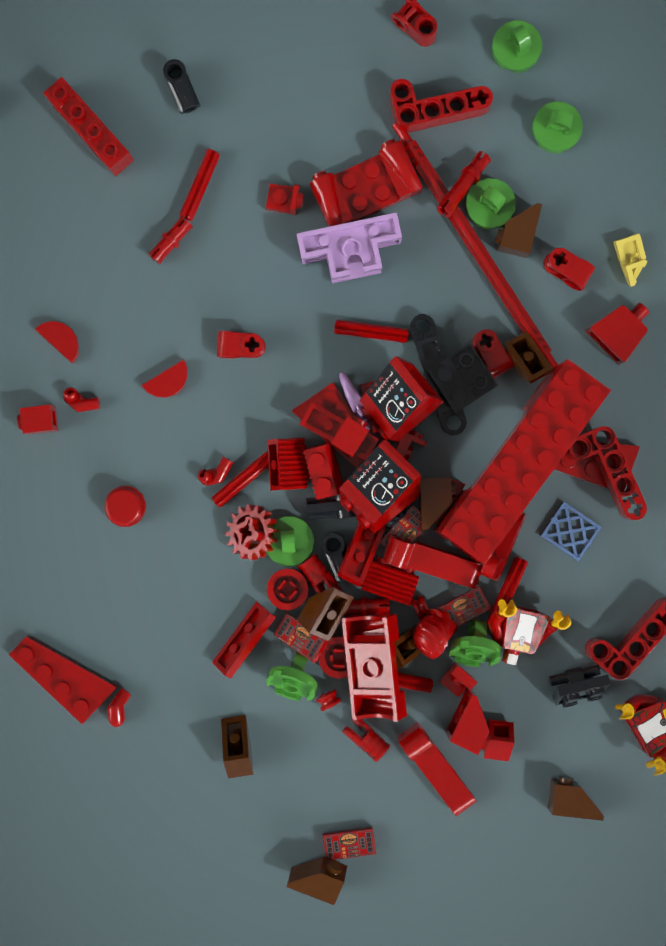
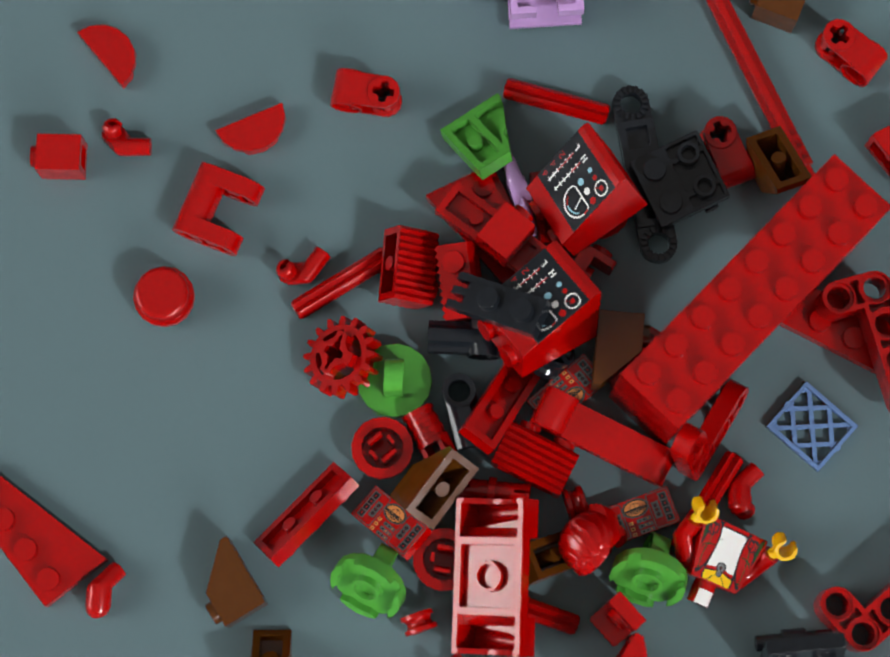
camera: 10 degrees right, 10 degrees down
(140, 439) = (202, 202): none -> red connector
(202, 694) = (231, 587): none -> reddish brown slope
(324, 365) = (481, 137): none -> bright green wing
(353, 490) = (500, 305): none -> black hinge
(528, 584) = (740, 492): none -> red arm

